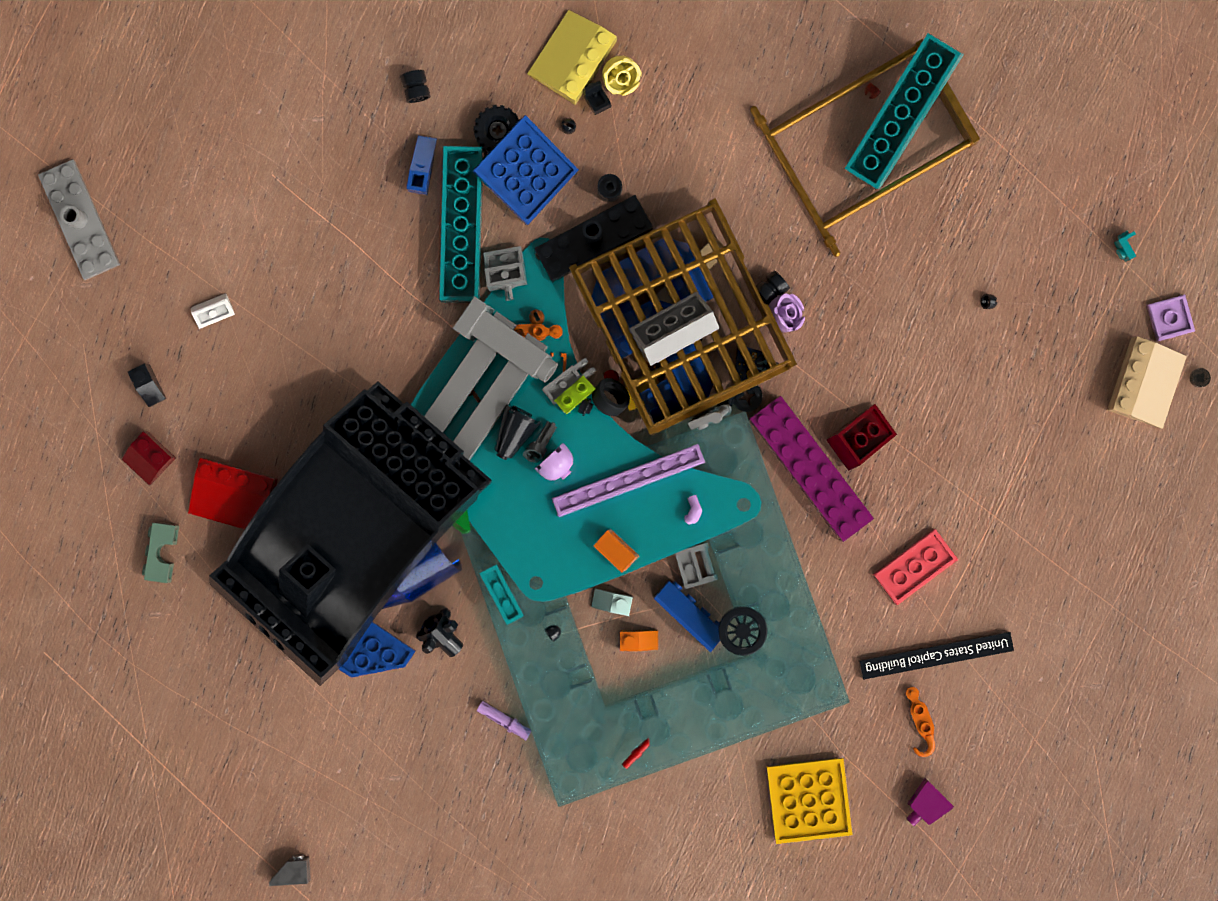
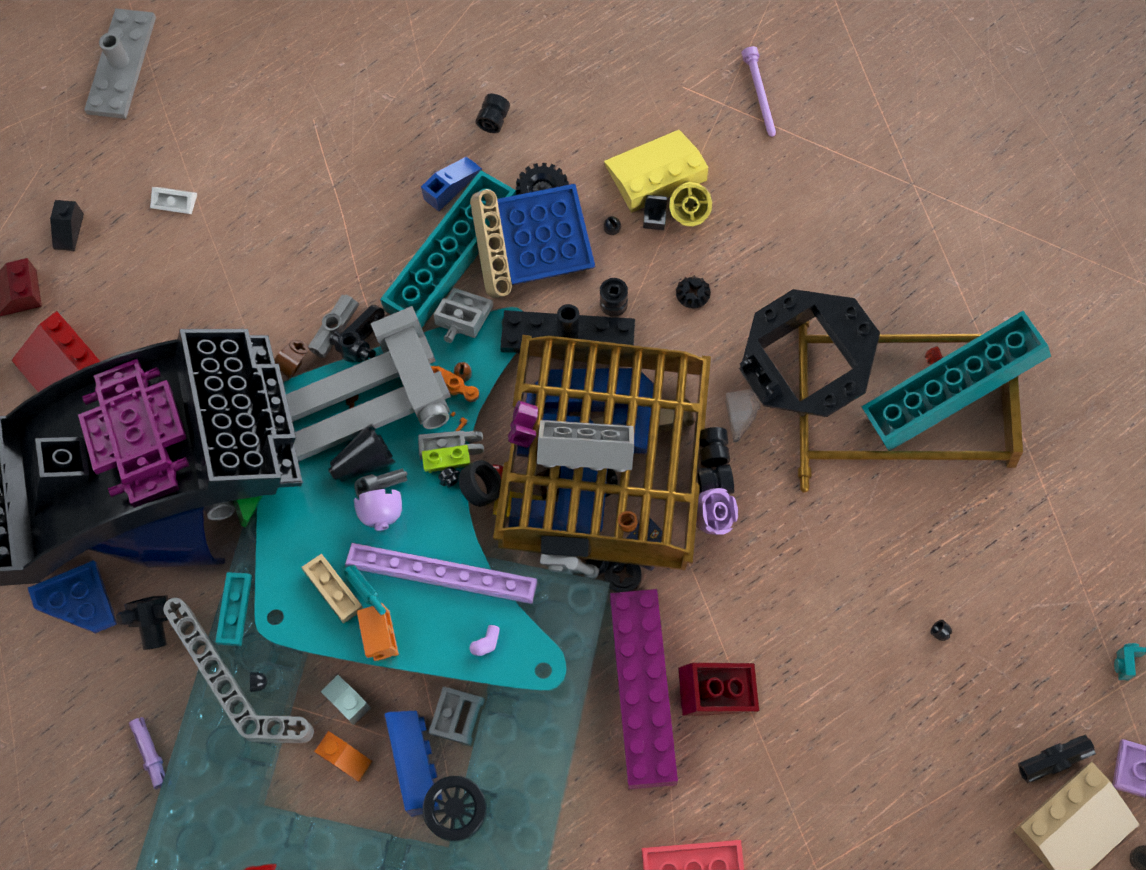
camera: 35 degrees right, 20 degrees down
(345, 519) = (133, 431): none -> magenta piece
(403, 384) = (291, 357): none -> reddish brown piece
(414, 352) = (339, 315): none -> light grey piece
(437, 339) = (351, 341): none -> black piece
(485, 202) = (495, 234): none -> tan beam
(529, 643) = (223, 676): none -> light grey beam
(562, 539) = (332, 588): none -> tan plate
(586, 526) = (363, 588): none -> teal axle
(617, 335) = (521, 426): none -> magenta leg
(655, 147) = (689, 299): none -> black gear
(704, 410) = (565, 546): none -> black slope
(735, 366) = (625, 520): none -> dark orange hinge
(756, 263) = (714, 448): none -> black wheel
(758, 222) = (741, 411): none -> clear slope
(801, 114) = (845, 325): none -> black hinge
(1111, 345) = (1056, 758): none -> black piece

